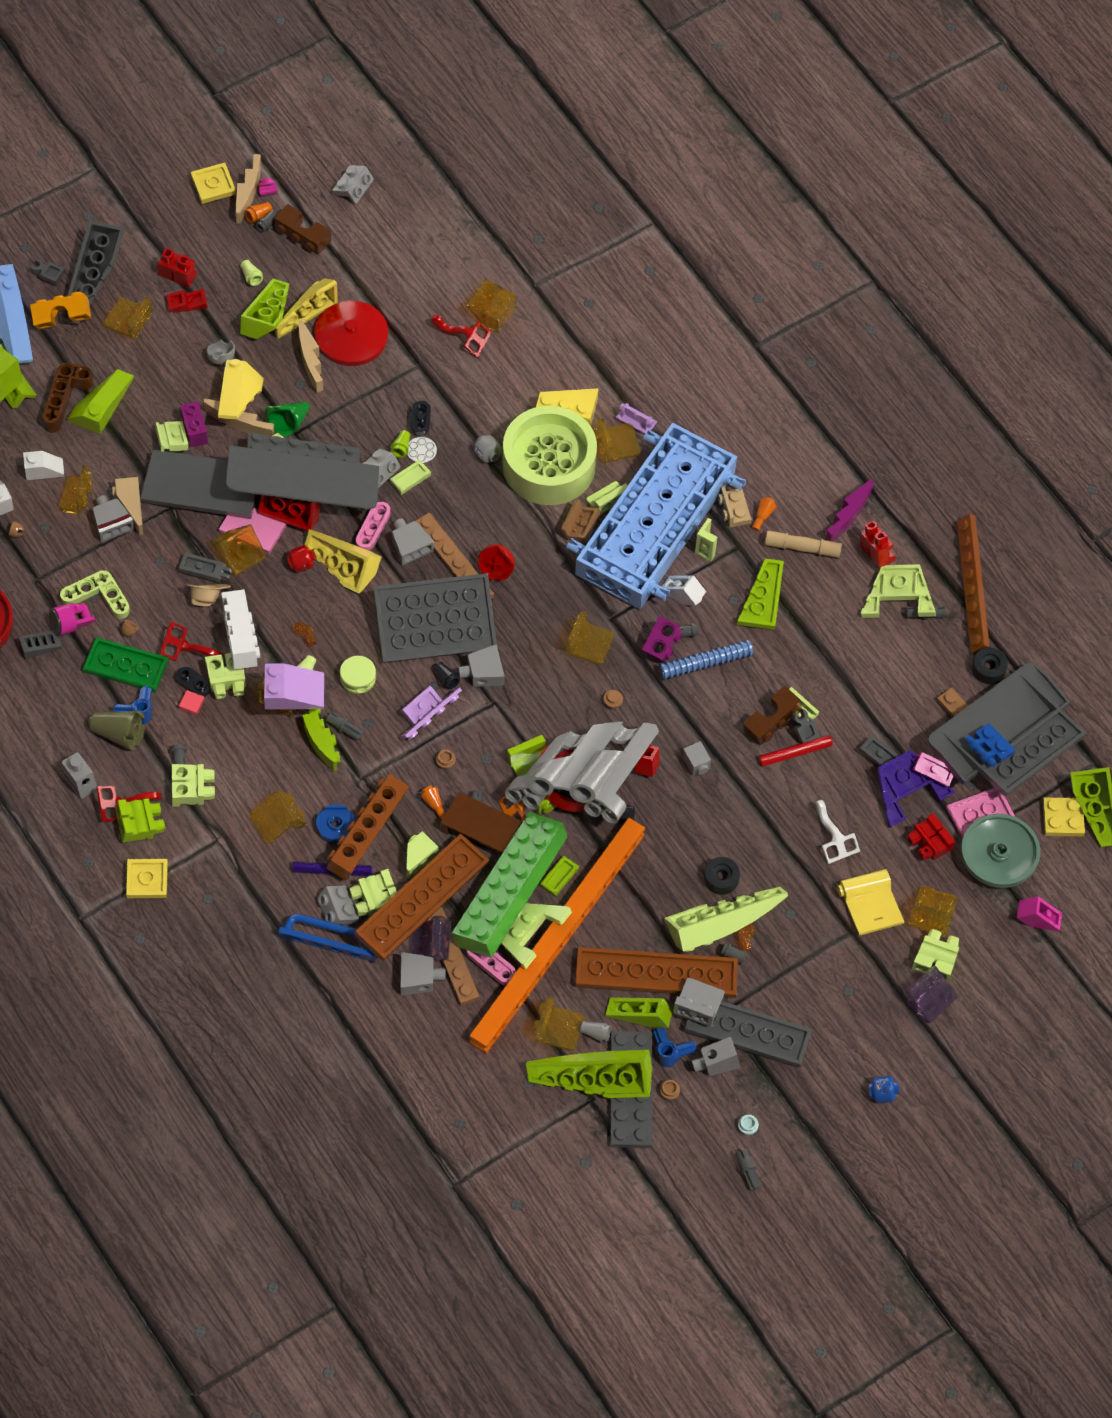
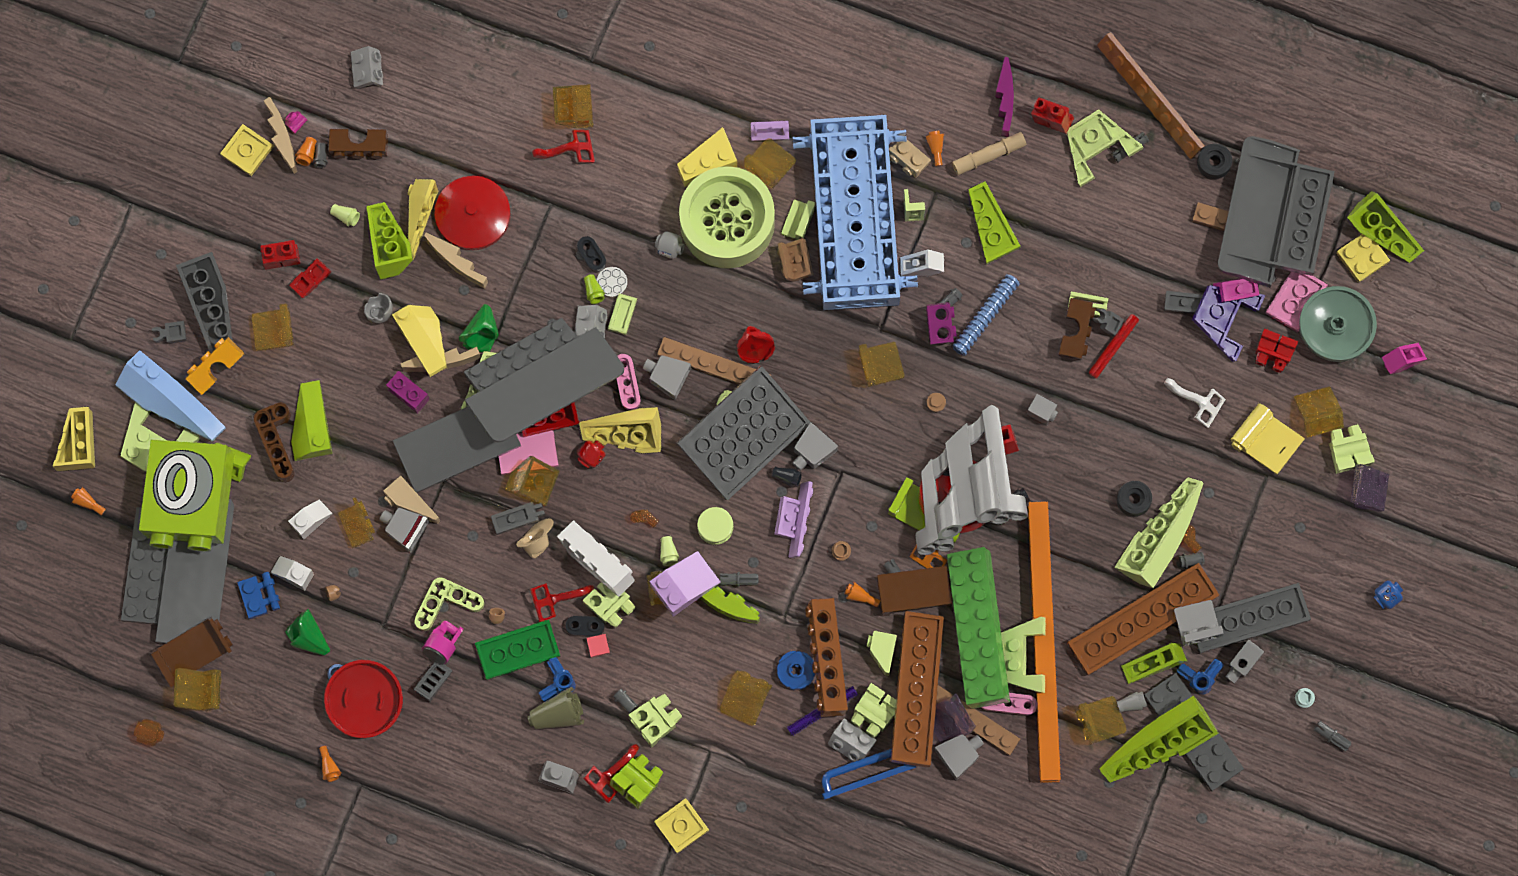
camera: 30 degrees left, 15 degrees up
(172, 436) = (398, 416): yellowish green plate -> none
(559, 876) = (1006, 589): lime tile -> none
(669, 1089) = (1224, 711): medium nougat plate -> none
(993, 742) = (1273, 235): blue plate -> none

